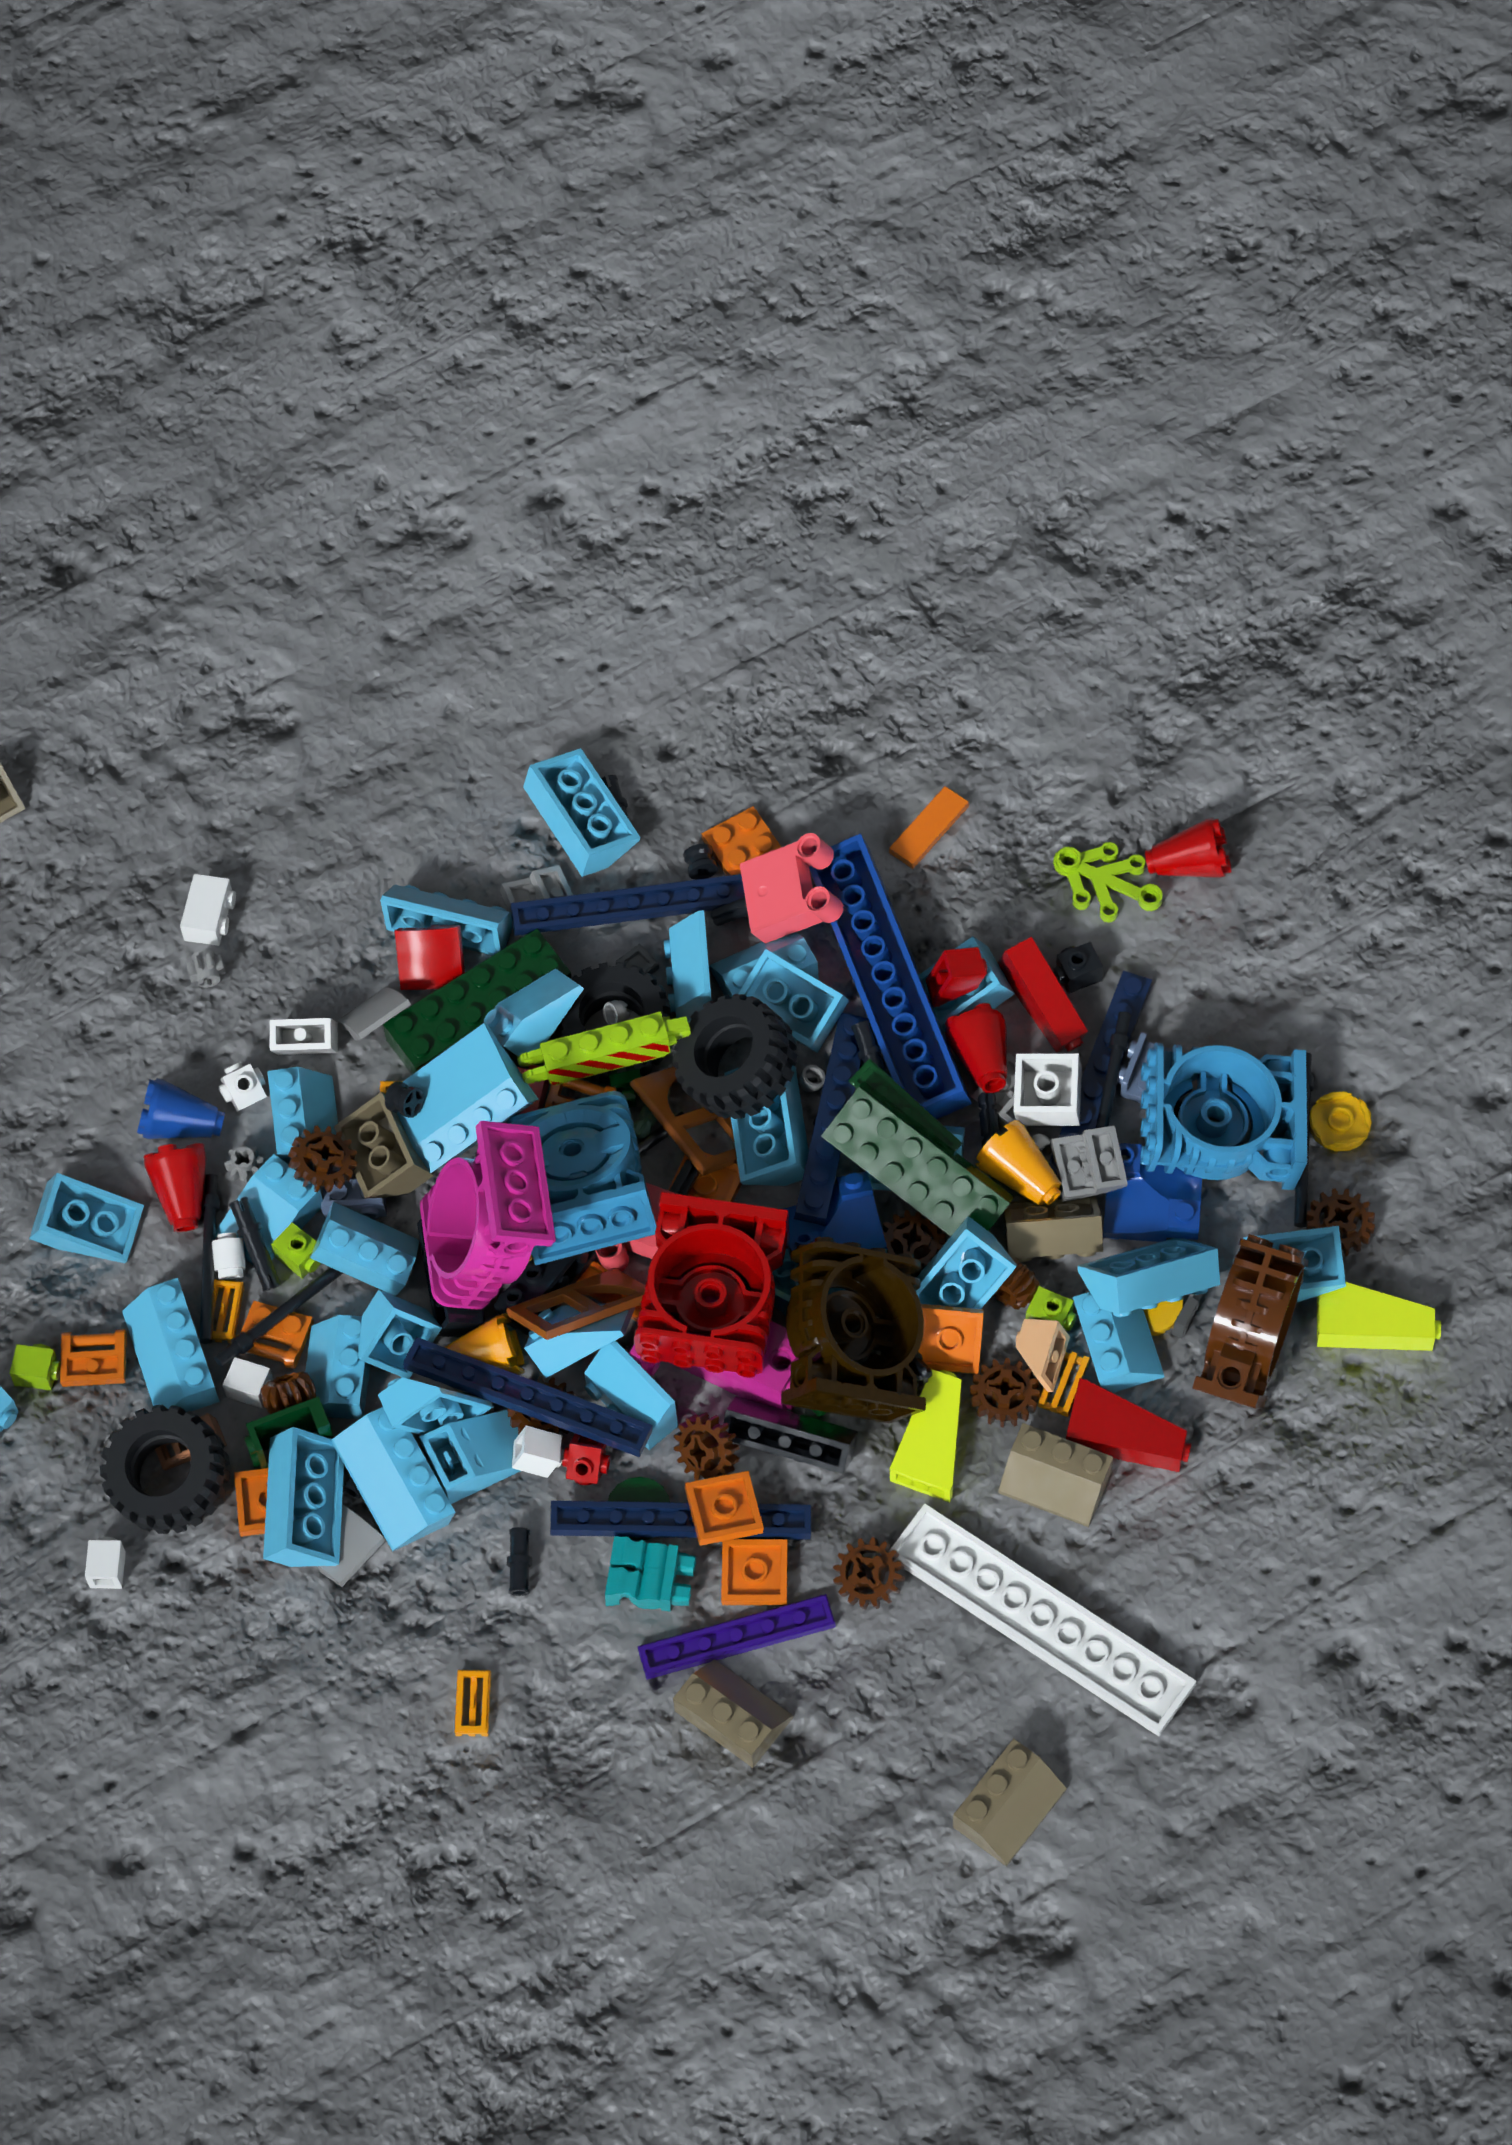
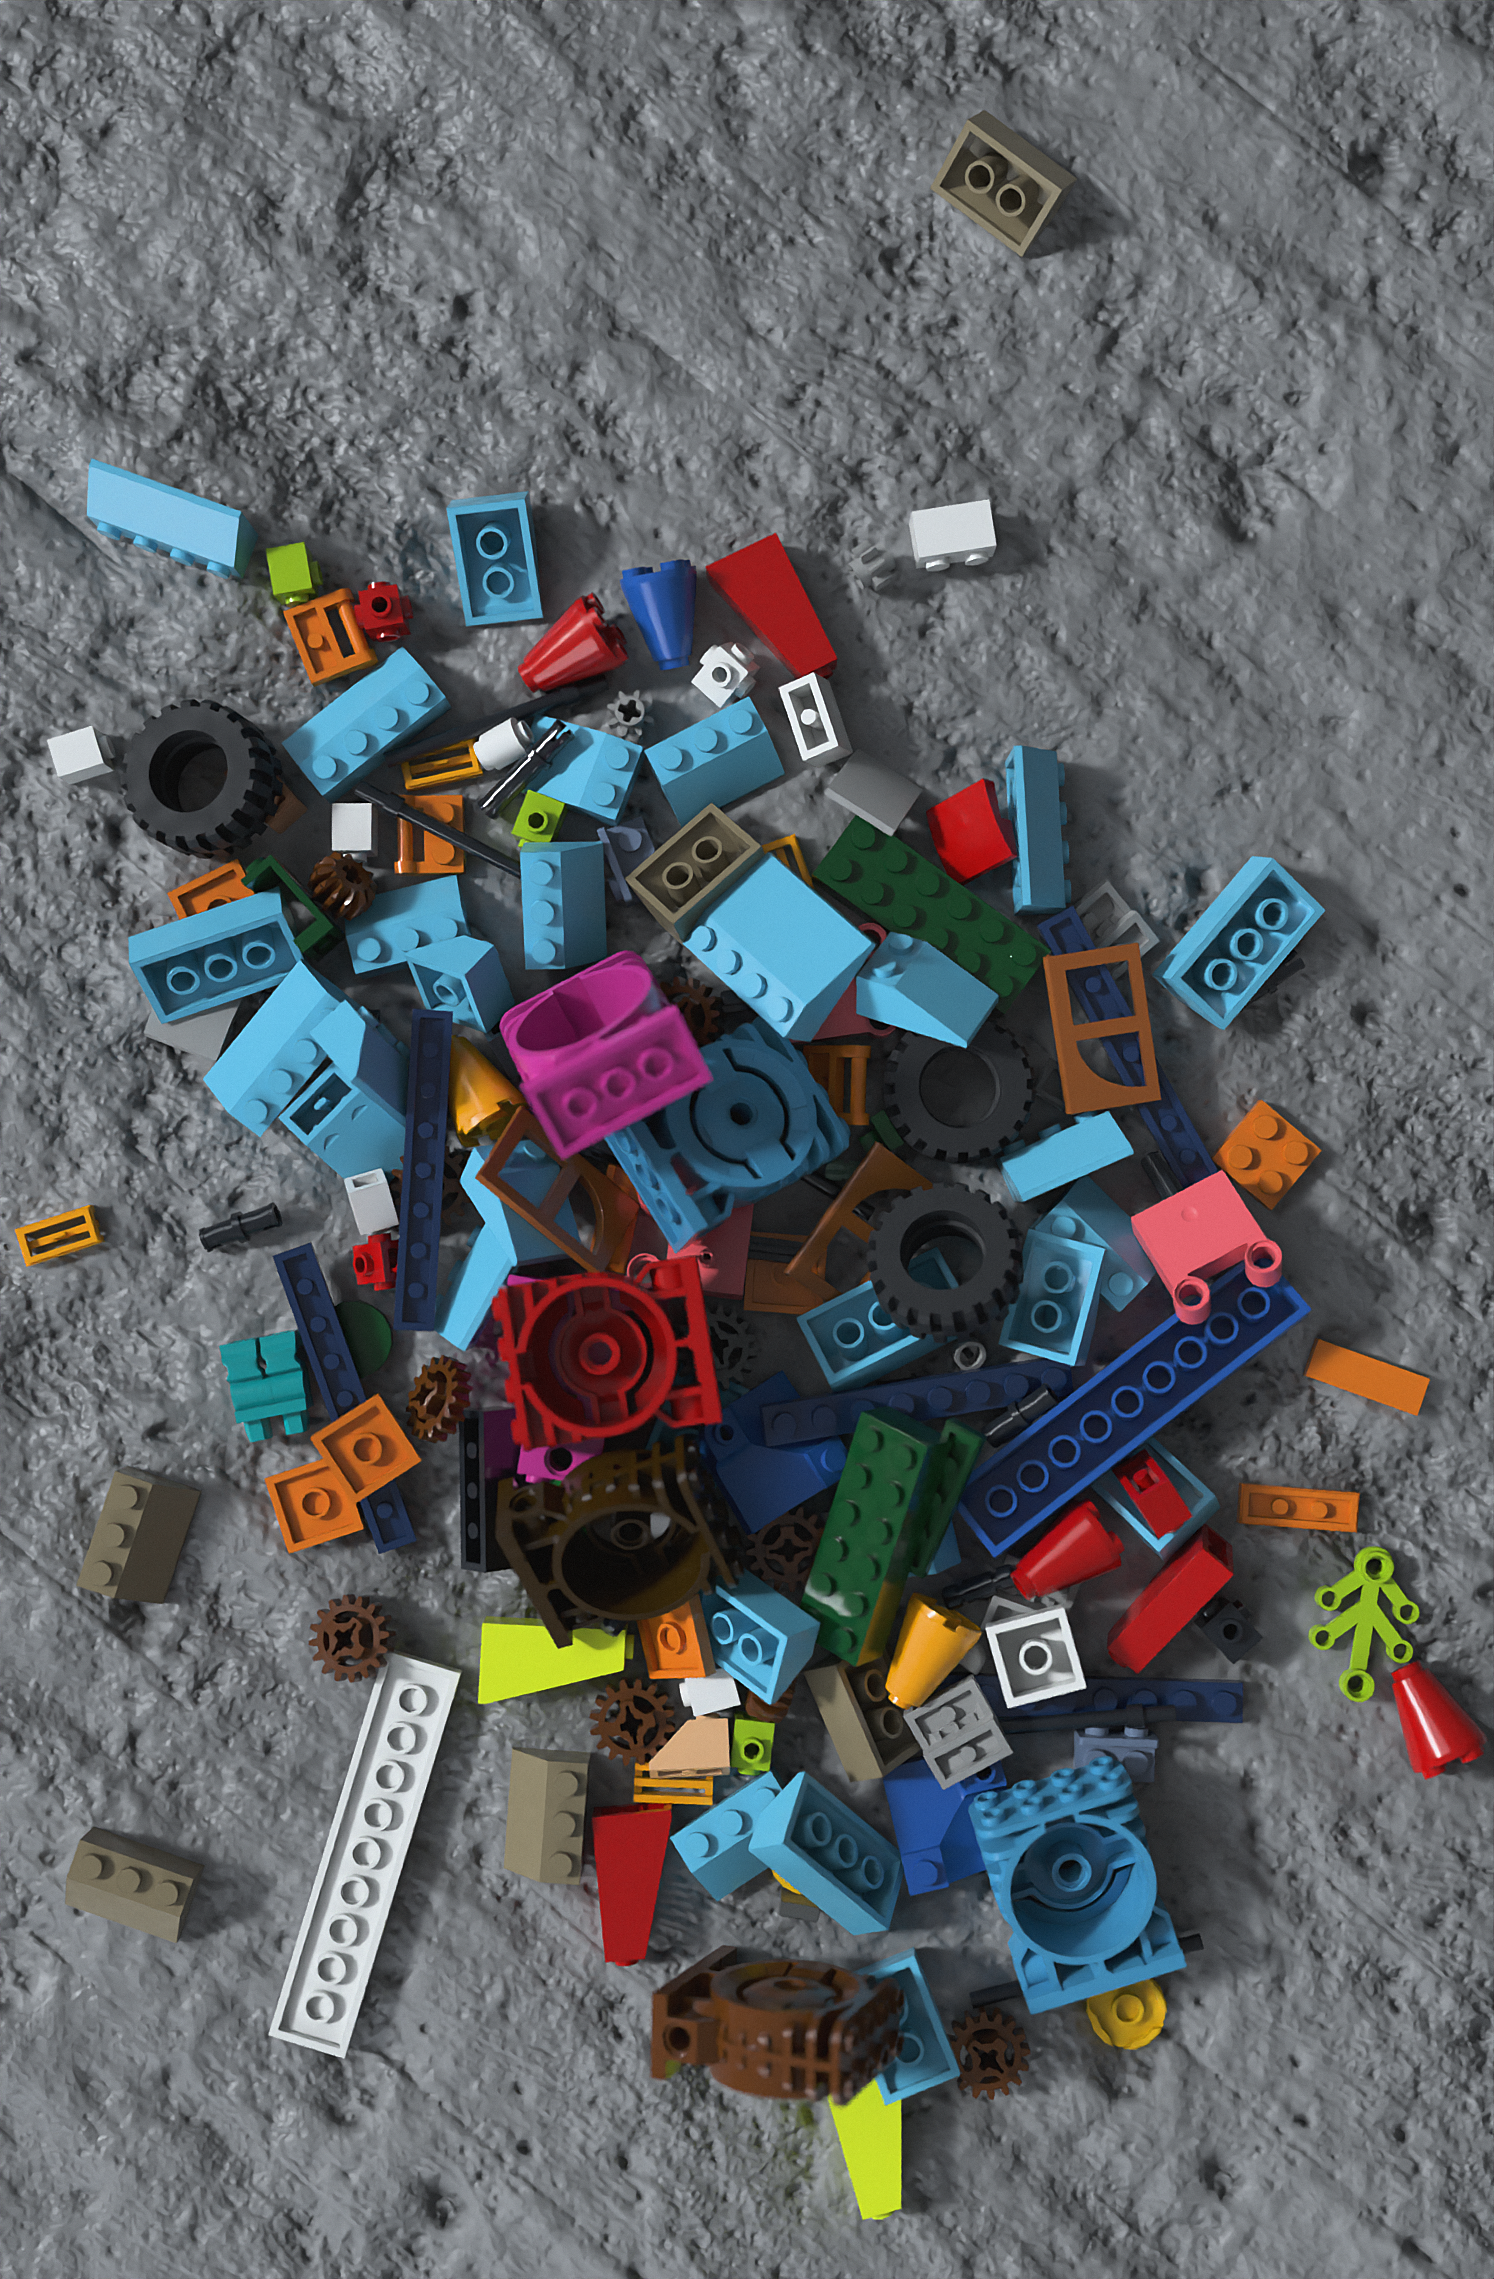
camera: 70 degrees right, 25 degrees up
(93, 1309) = (392, 622): none -> red brick
(209, 1041) = (773, 604): none -> red slope
(307, 1158) = (632, 812): reddish brown gear -> none
(404, 1099) = (751, 879): black wheel -> none
(604, 1049) = (896, 1102): lime hinge -> none
(615, 1012) = (955, 1095): light grey hinge -> none
(644, 939) = (1080, 1085): none -> dark orange window
(700, 861) = (1220, 1113): black wheel -> none
(736, 1636) = (235, 1506): dark purple tile -> none
(998, 1329) = (710, 1692): none -> white brick
(1008, 899) = (1298, 1507): none -> orange tile

